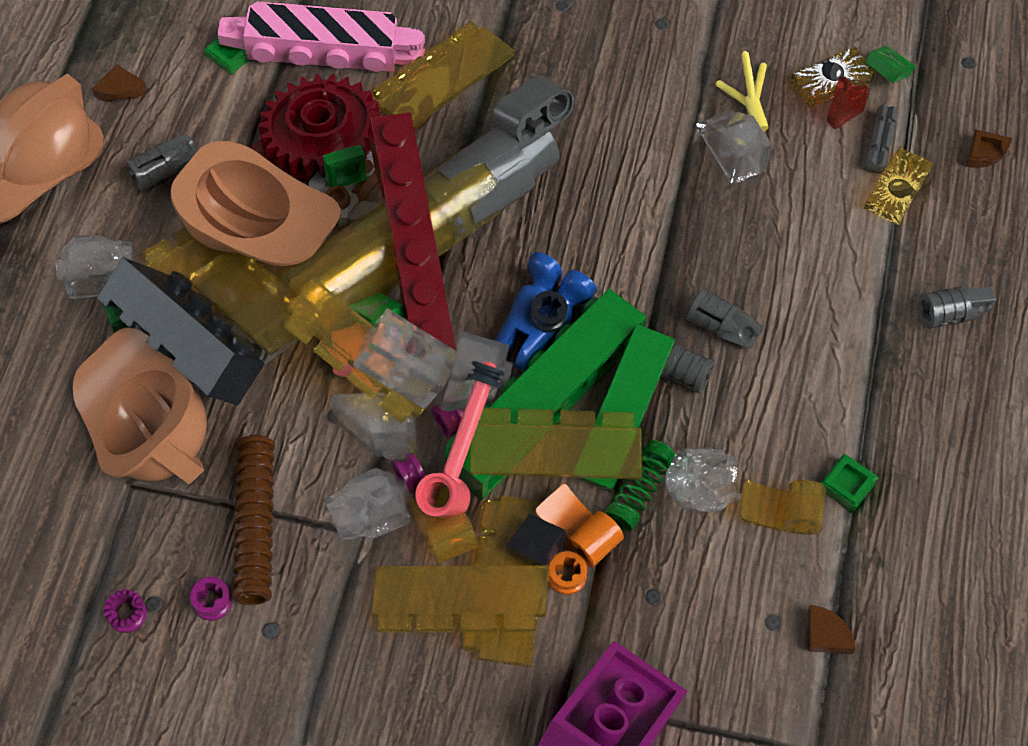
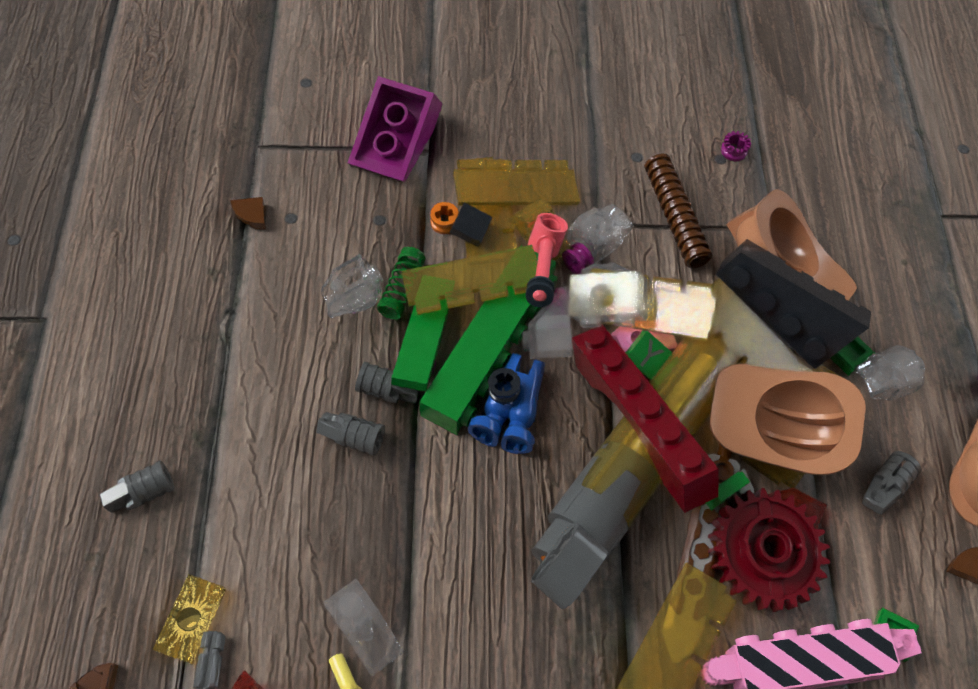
camera: 165 degrees right, 0 degrees up
(221, 605) = (686, 154): magenta bush -> none
(587, 533) = (435, 242): orange panel -> none
(792, 511) = (278, 291): clear yellow panel -> none
(849, 482) = (237, 320): green tile -> none

